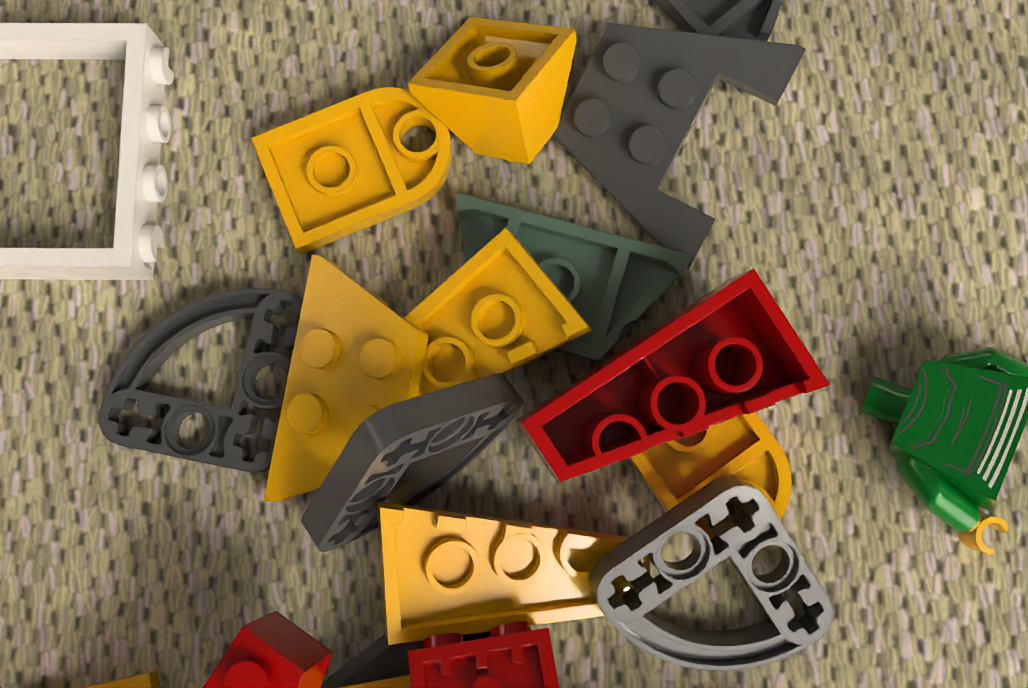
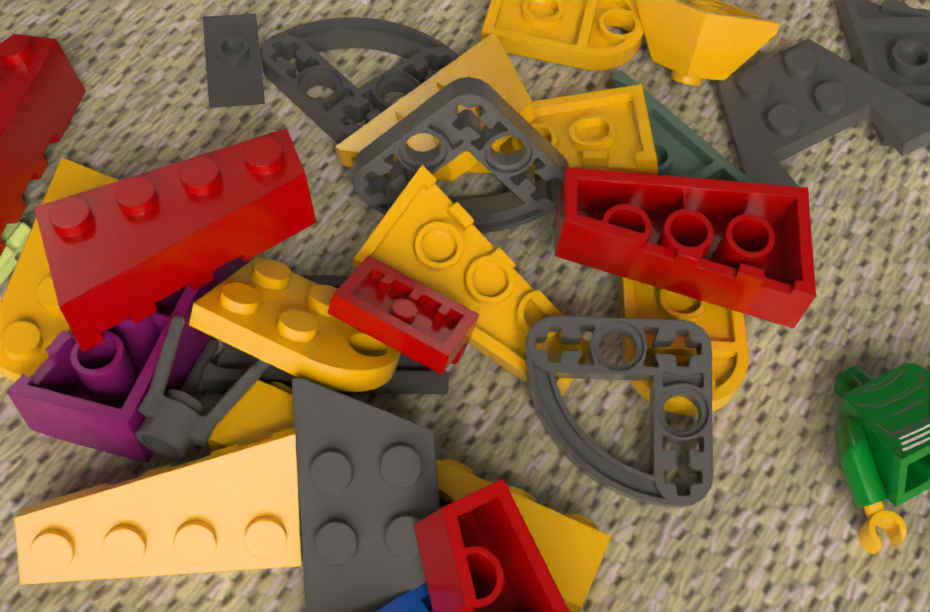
camera: 30 degrees right, 25 degrees down
(79, 457) = (233, 60): none -> dark grey plate

